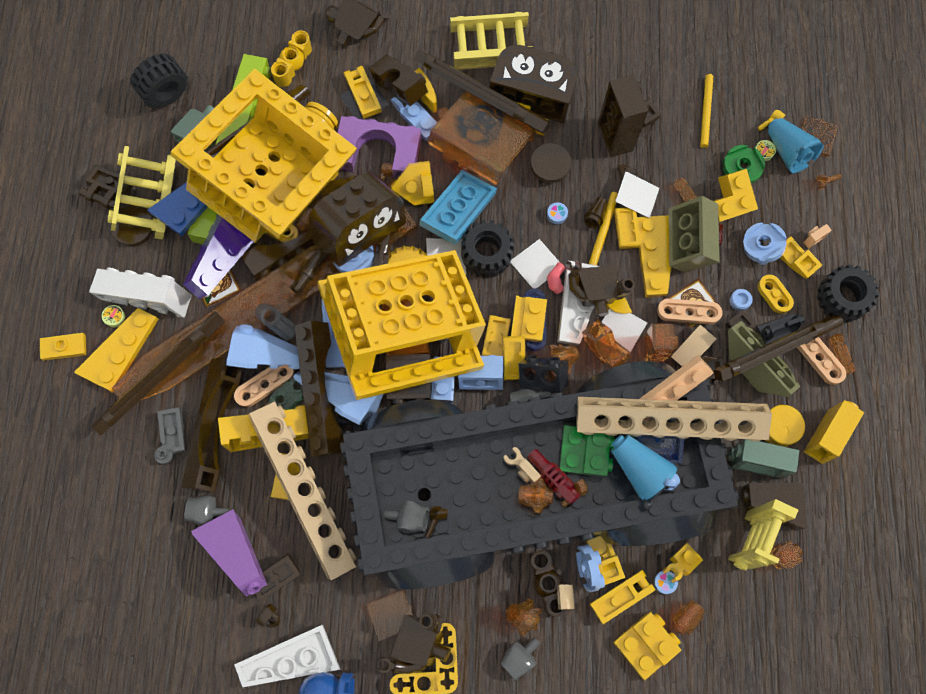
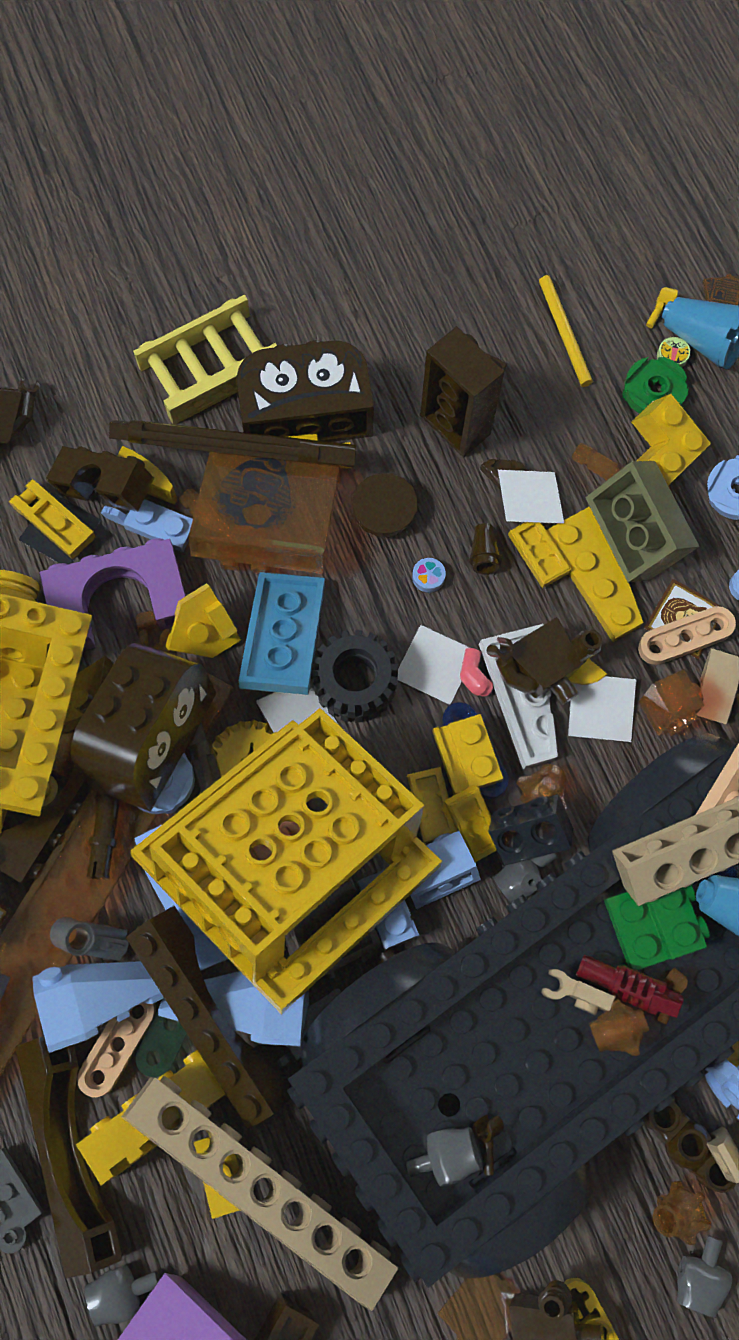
camera: 25 degrees left, 0 degrees up
(603, 229) = (506, 570): yellow bar -> none
(603, 344) = (594, 744): clear orange brick -> none

